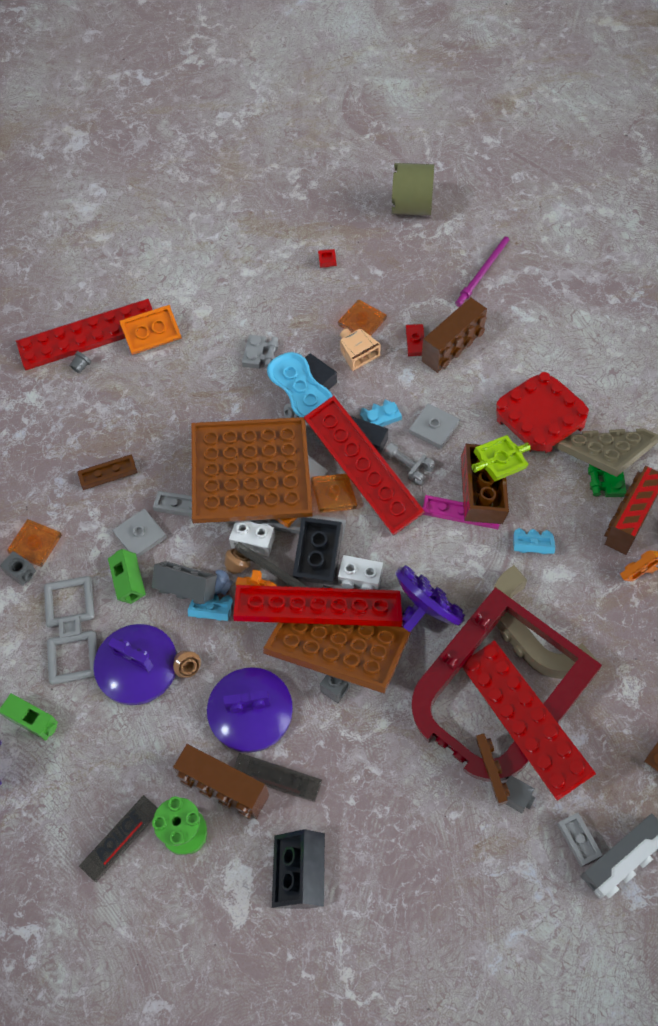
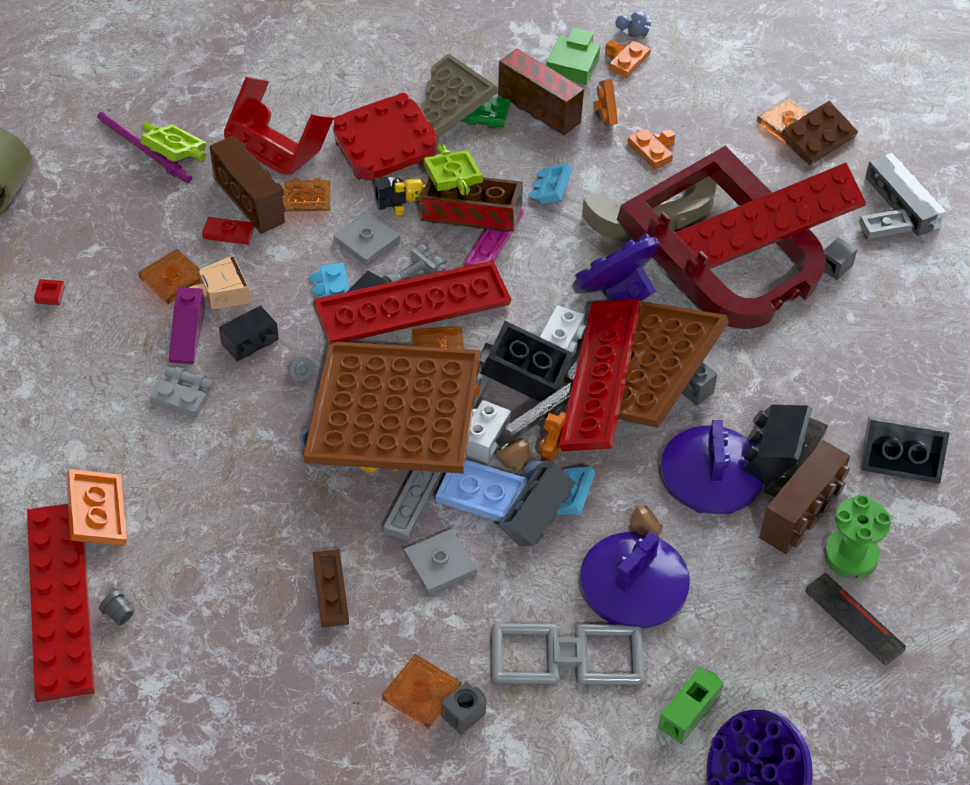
camera: 85 degrees left, 10 degrees down
(126, 576) = (508, 573): bright green brick -> none
(203, 546) = (481, 490): none -> light blue plate
(272, 749) = (775, 441): none -> black slope
(294, 376) = (291, 337): medium azure plate -> none
(317, 337) = (186, 325): none -> magenta slope
(460, 378) = (307, 195): none -> clear orange plate
(482, 429) = (395, 192): none -> piece
(487, 283) = (173, 142): none -> lime plate
(493, 769) = (820, 256): reddish brown plate -> none
(516, 334) = (250, 125): none -> red windscreen
(613, 616) = (653, 147): none -> orange hinge

